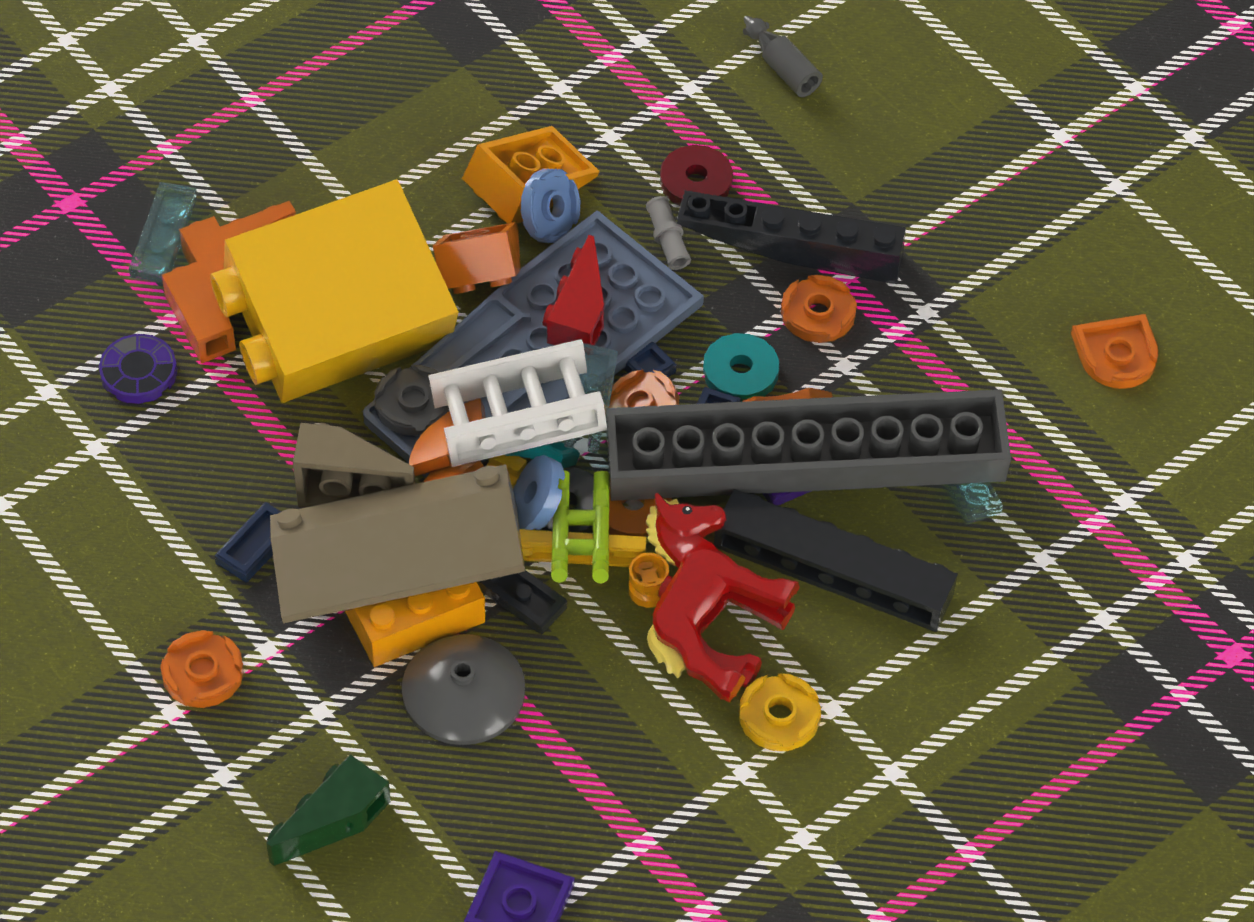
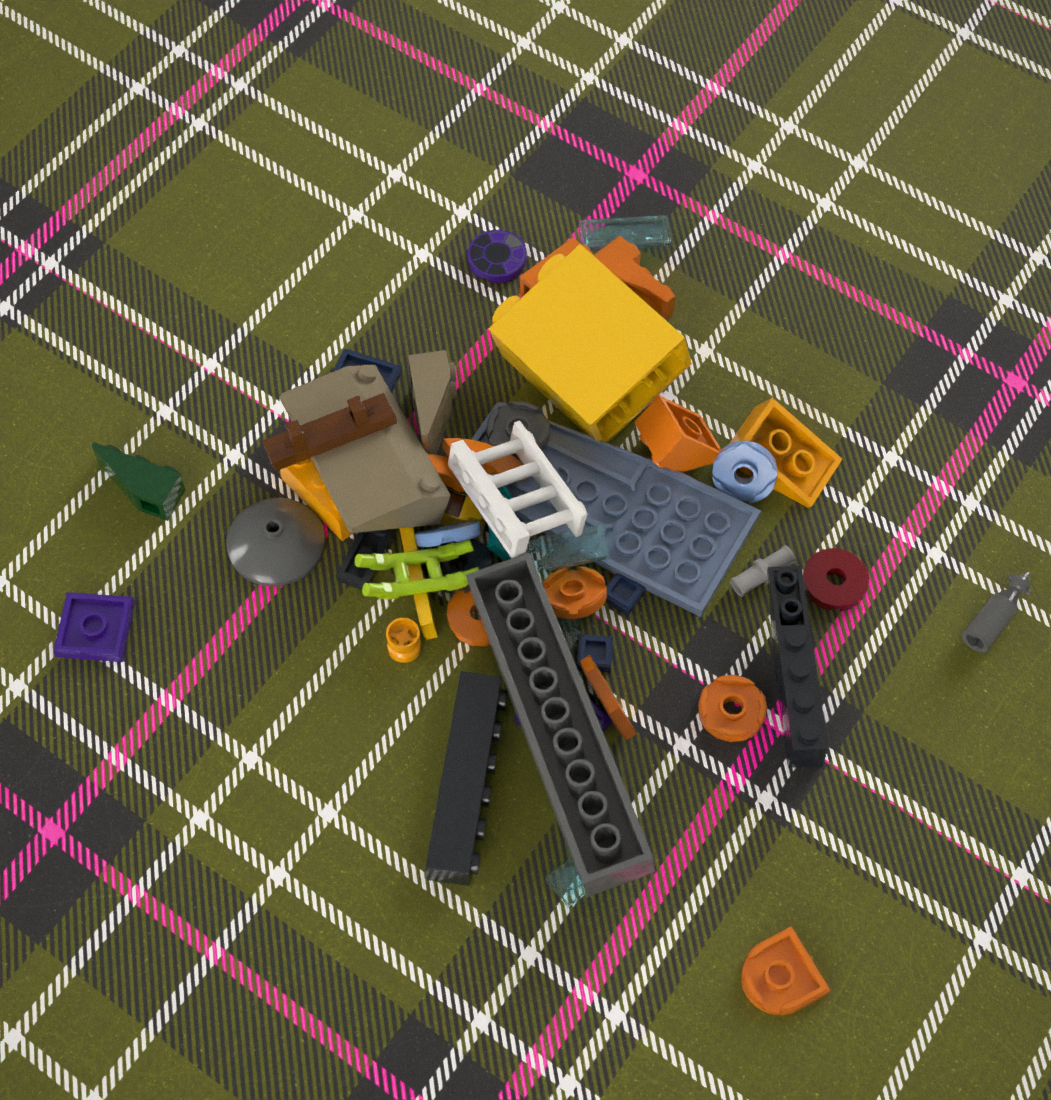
camera: 75 degrees right, 5 degrees up
(202, 669) = (248, 371): orange tile -> none
(372, 566) = (329, 431): none -> reddish brown hinge
(580, 301) = (646, 518): red slope -> none
(700, 593) = (390, 675): red animal -> none
(746, 350) = (645, 643): teal tile -> none
(775, 732) = (310, 790): yellow tile -> none

